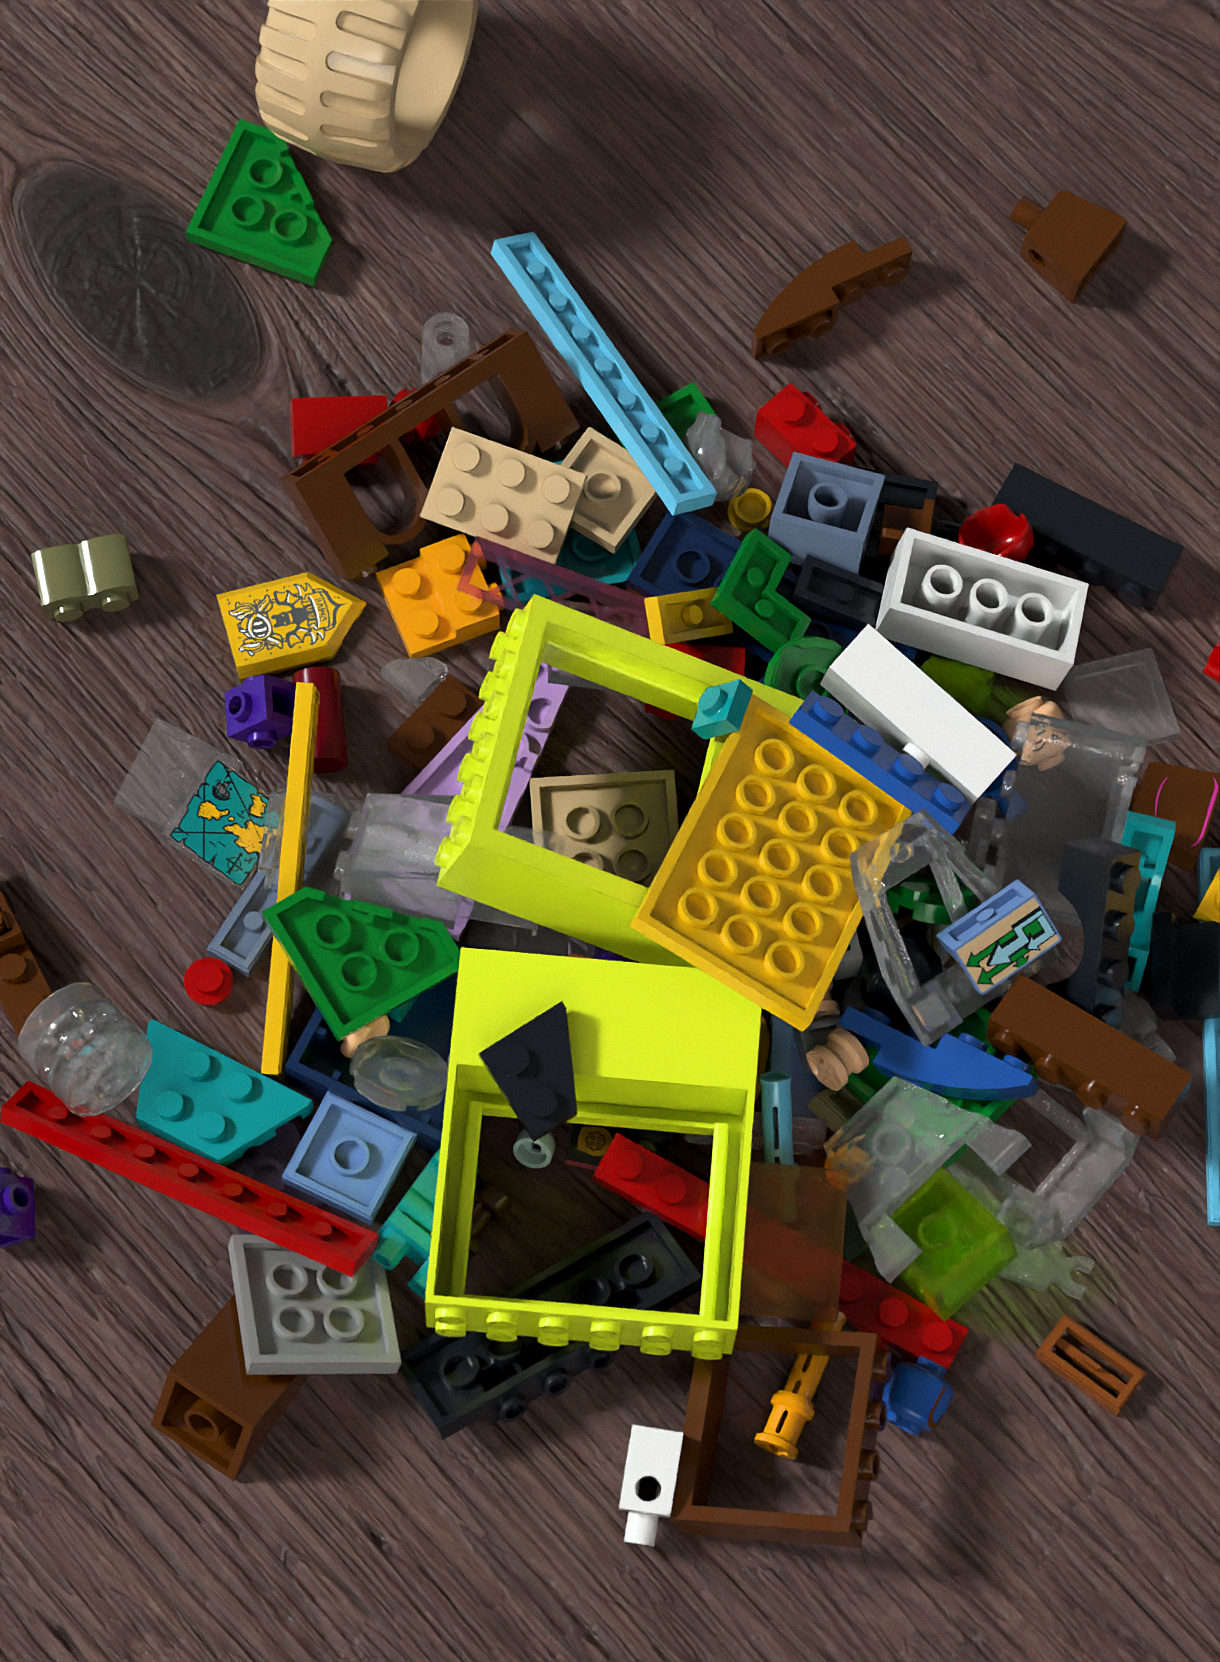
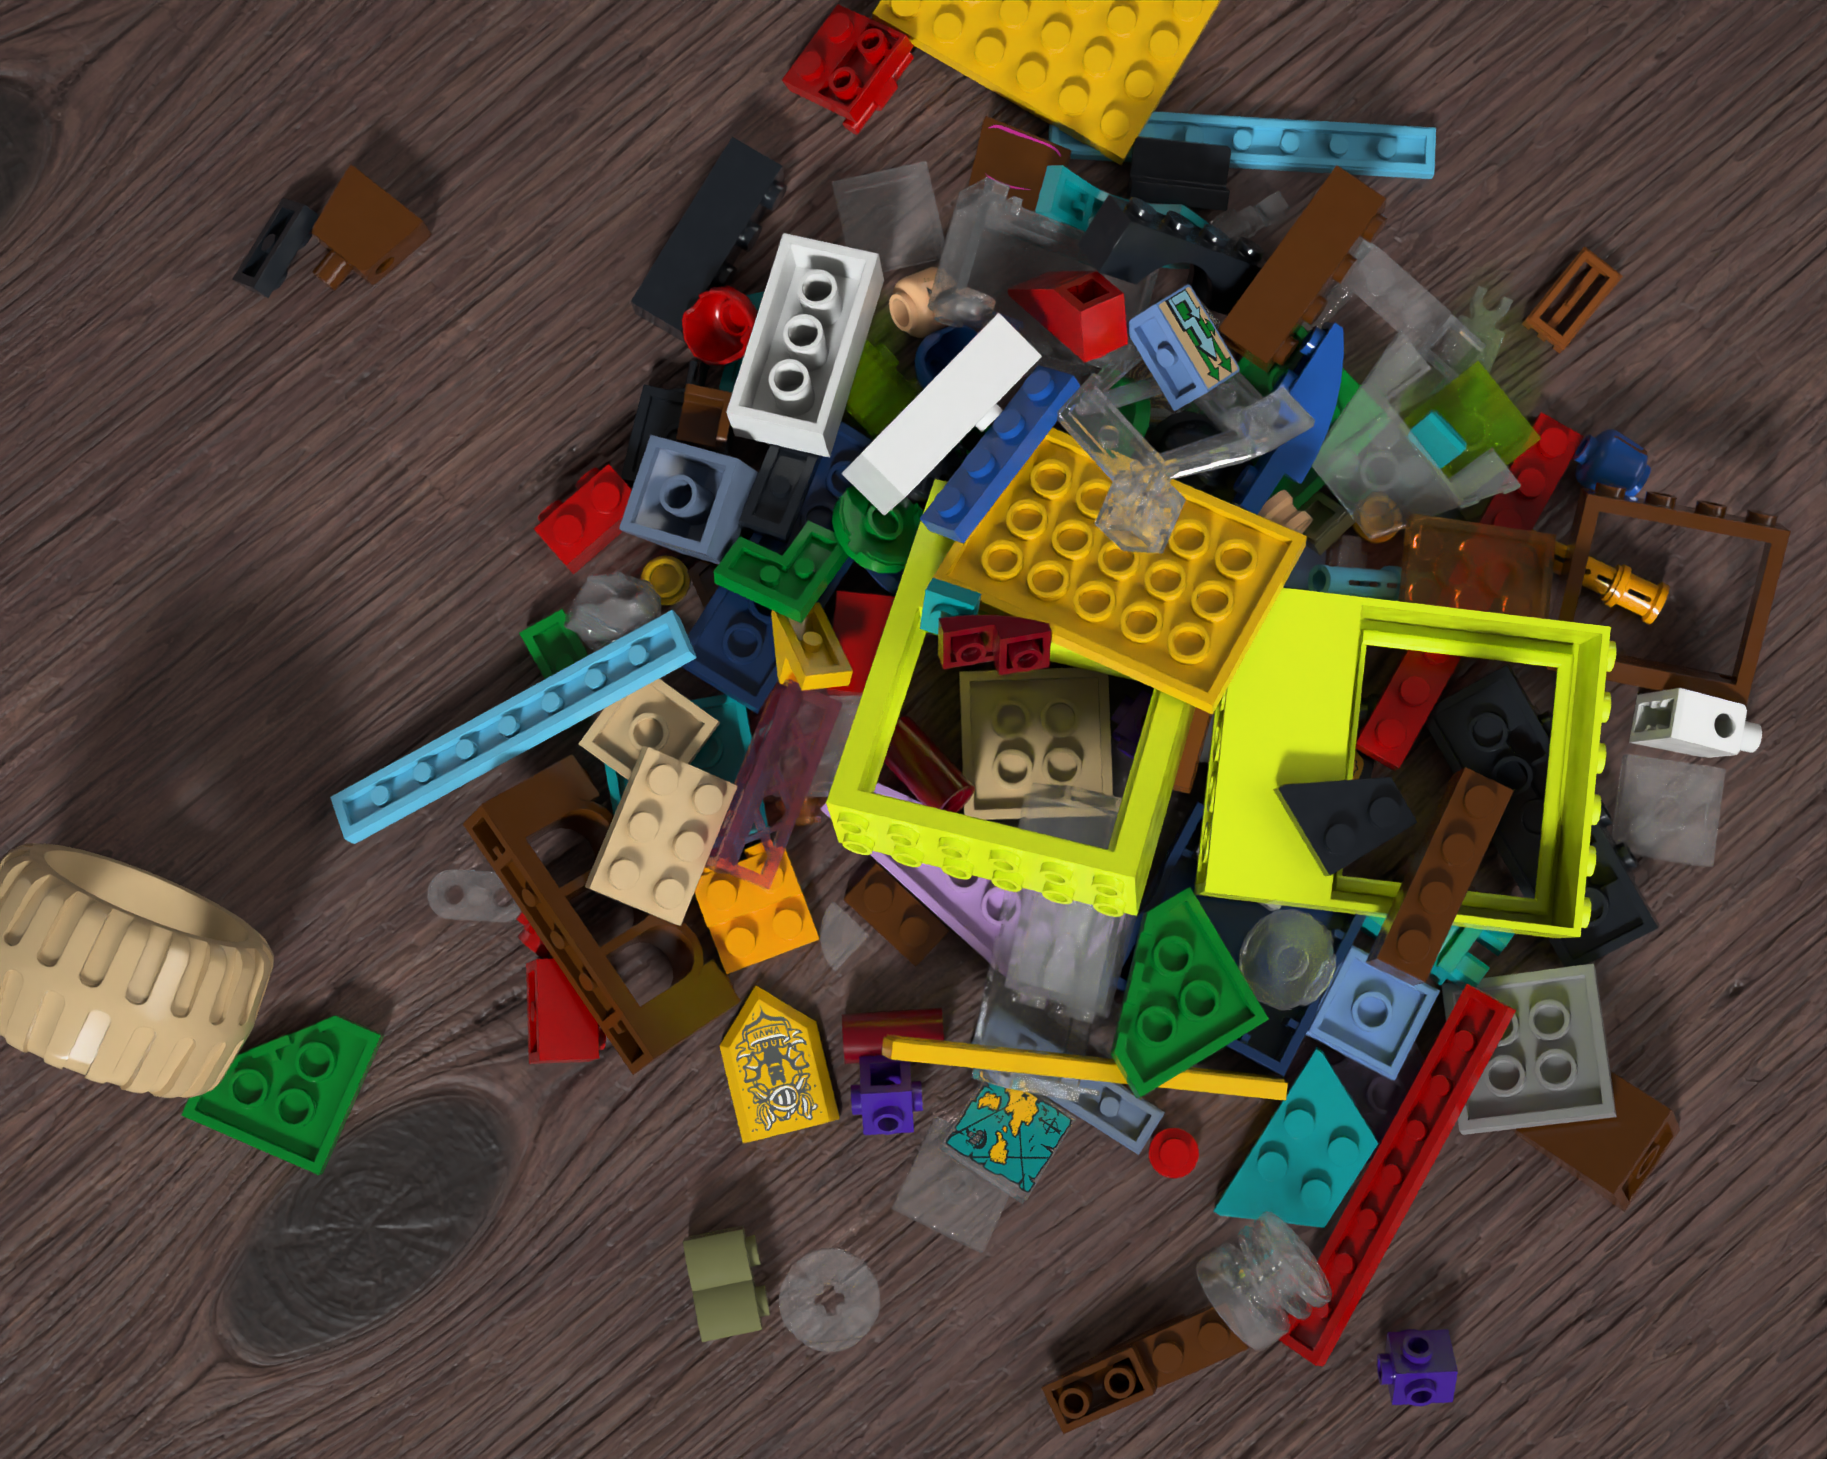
camera: 85 degrees left, 15 degrees up
(73, 698) = (810, 1321): none -> clear plate
(479, 1151) = (1439, 876): none -> reddish brown brick
(561, 1465) = (1668, 809): none -> clear plate
(577, 737) = (926, 768): none -> dark red pin
(693, 757) = (1009, 641): none -> dark red slope
(813, 297) = (425, 502): reddish brown slope -> none
(826, 864) = (1140, 510): none -> clear brick
(930, 1199) = (1439, 438): none -> teal slope
(1024, 840) = (1077, 309): none -> red slope
(1031, 160) = (275, 248): none -> black plate

